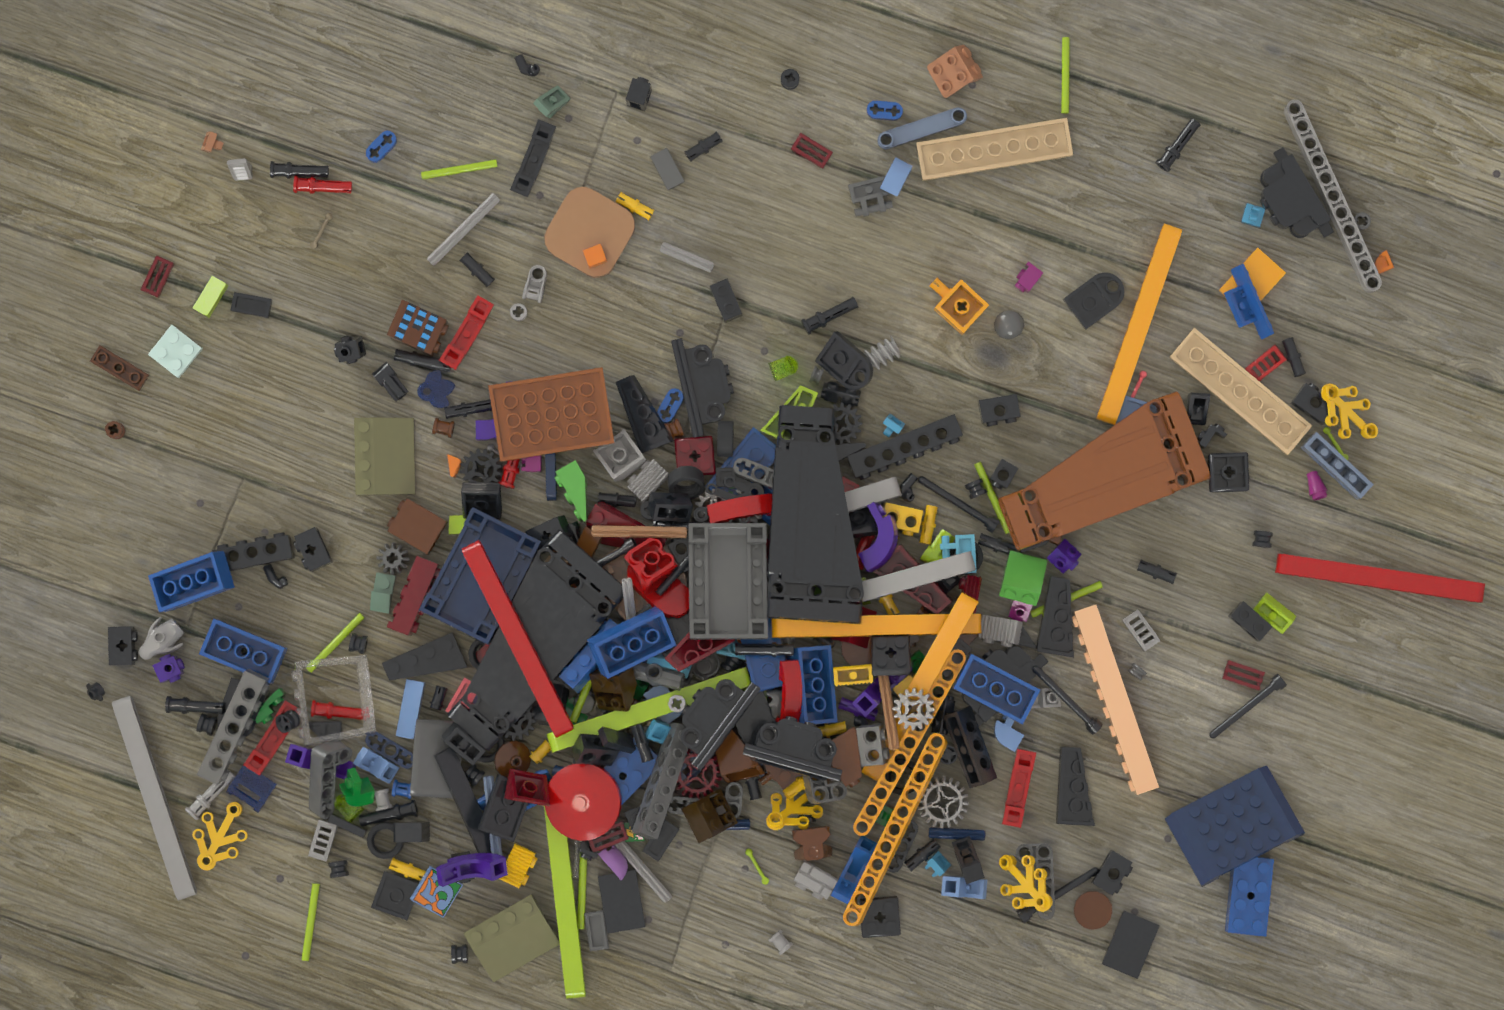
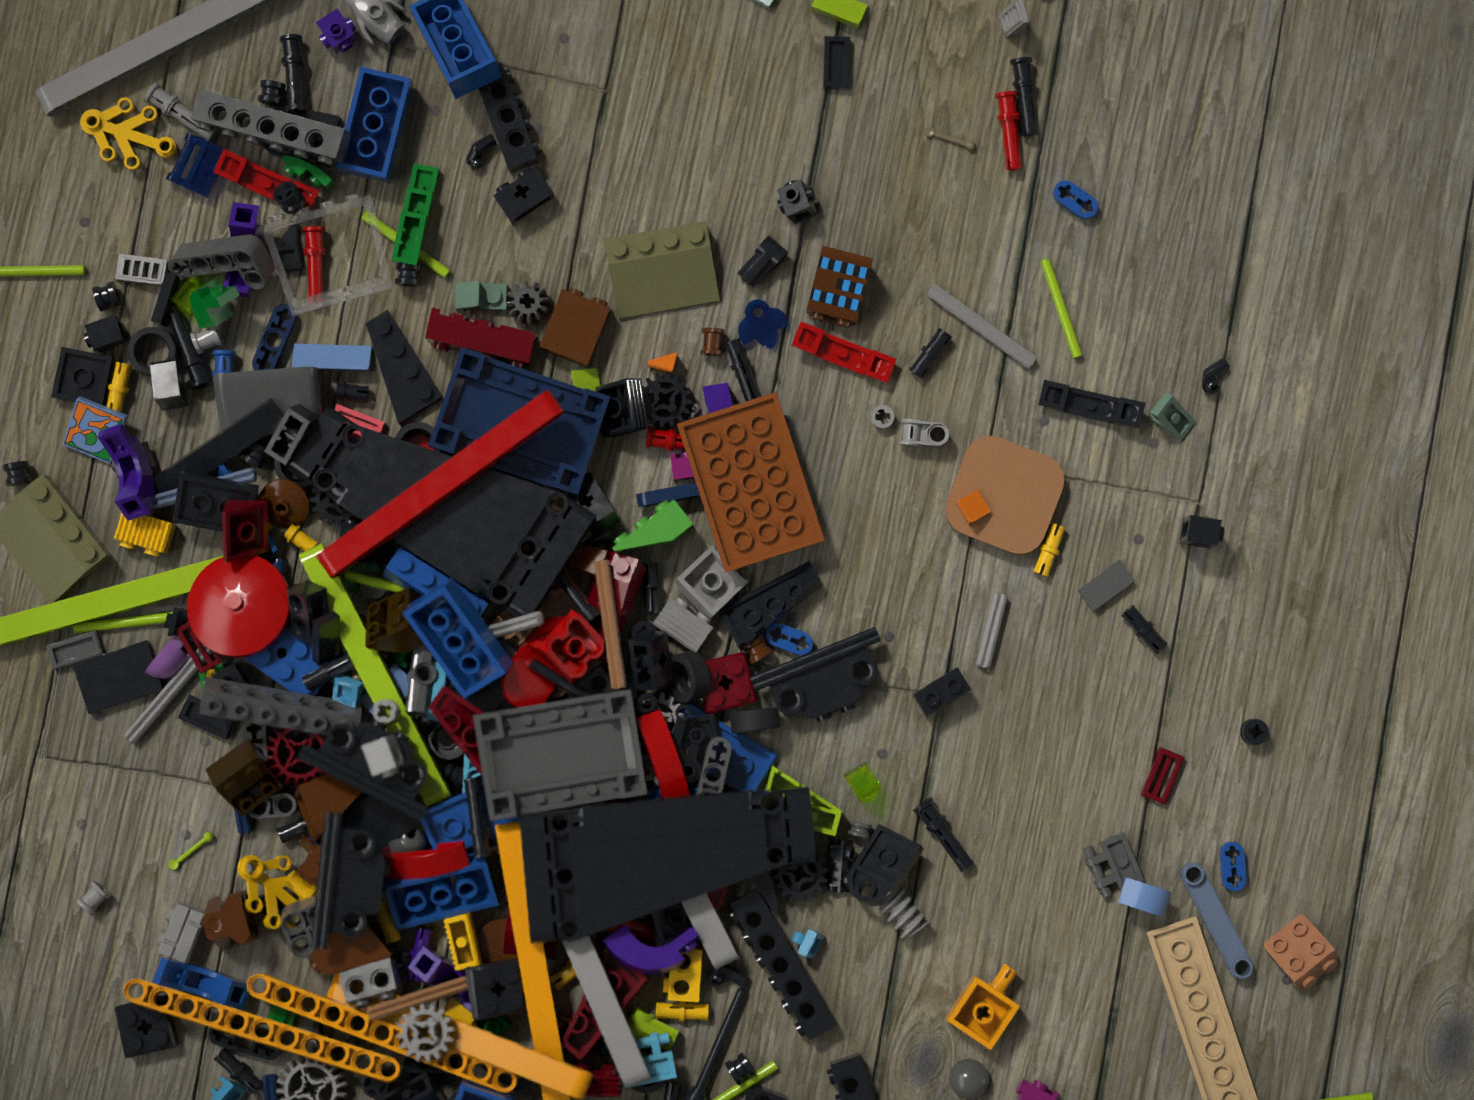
camera: 75 degrees right, 0 degrees up
(314, 631) = (415, 214): none -> green slope
(366, 874) = (104, 334): none -> black brick
(376, 764) = (250, 324): medium blue brick -> none
(421, 360) = (798, 295): black pin -> none
(708, 707) = (383, 756): none -> light grey brick

